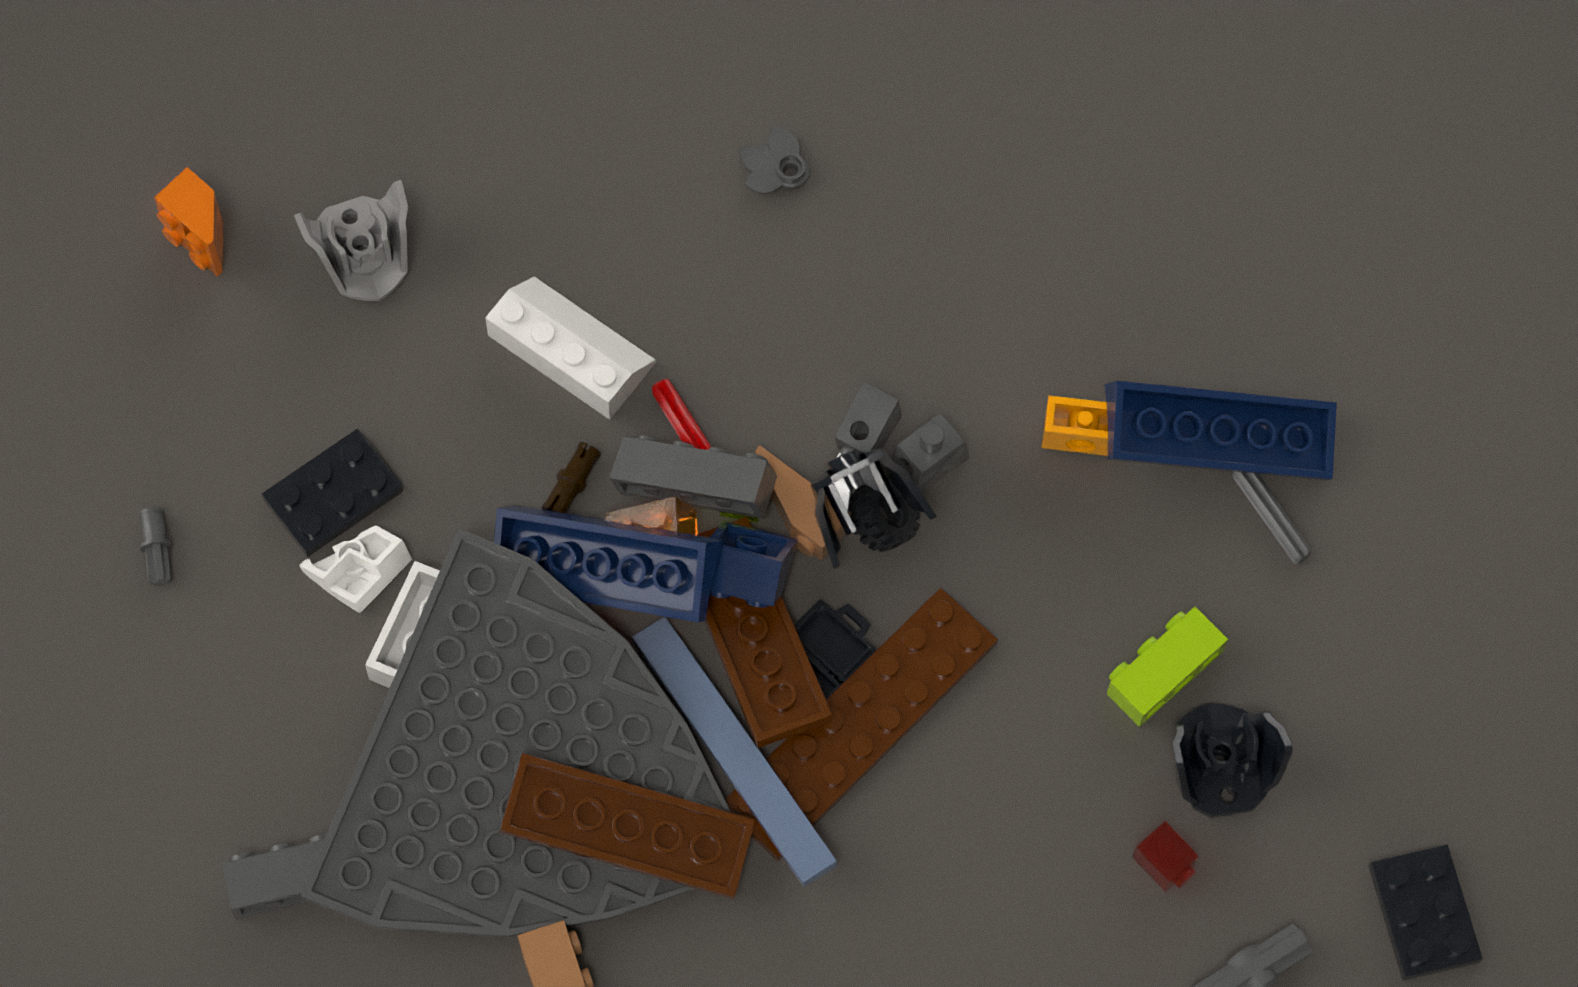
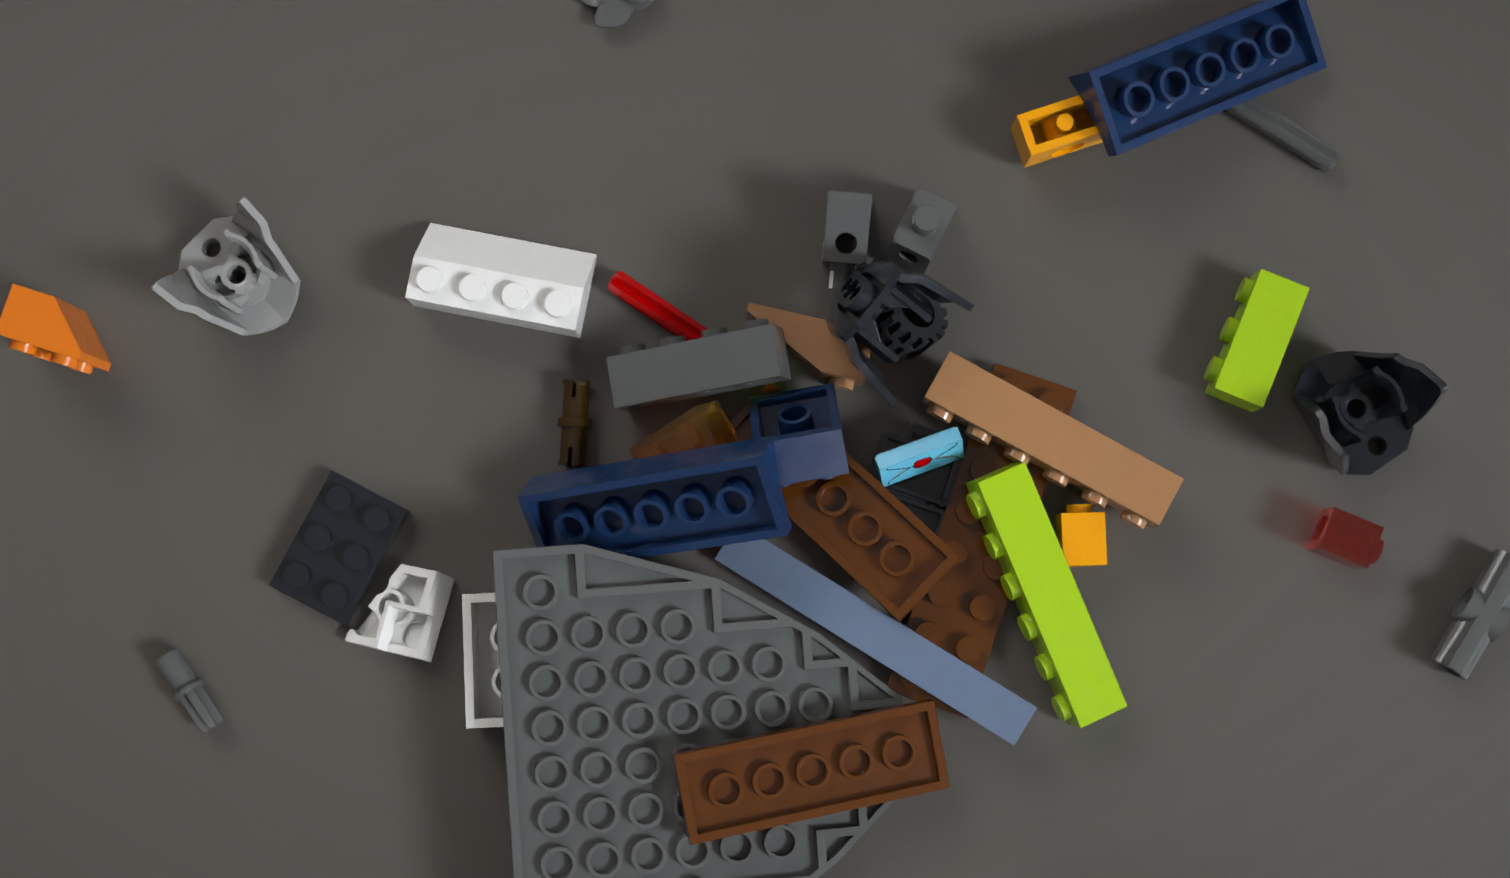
camera: 20 degrees left, 15 degrees up
(839, 626) = (919, 456): none -> medium azure tile
(889, 781) = (1045, 595): none -> lime brick
(942, 755) = (1082, 535): none -> light orange brick
(952, 661) = (1052, 441): none -> medium nougat brick

